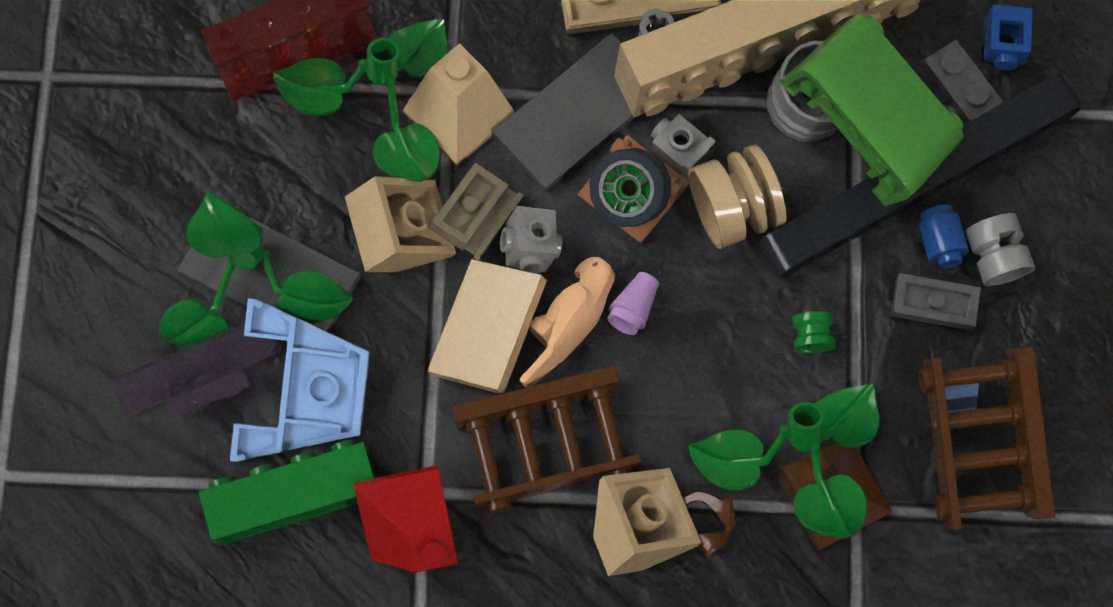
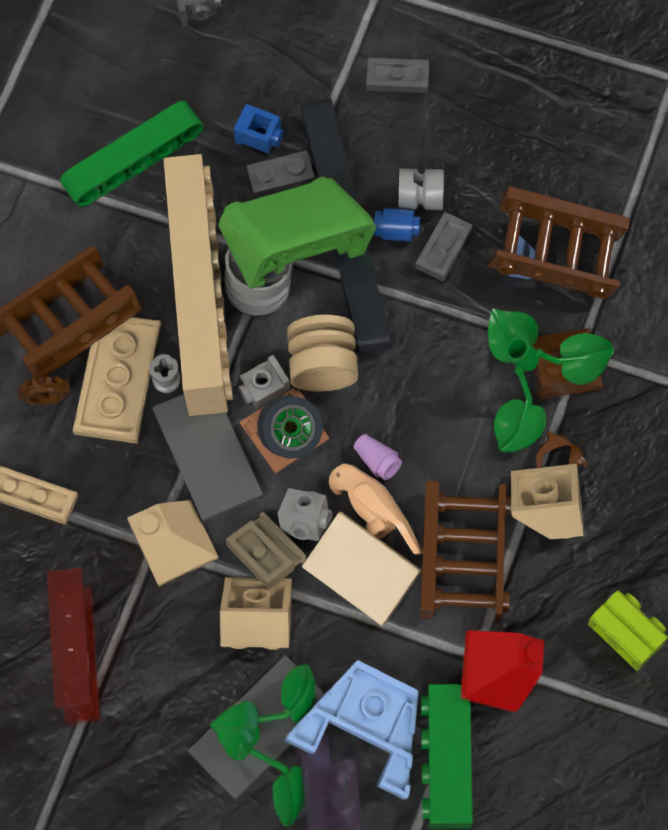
camera: 70 degrees left, 5 degrees down
(318, 85) = (115, 561): green plant -> none
(813, 332) = (441, 336): green wheel -> none

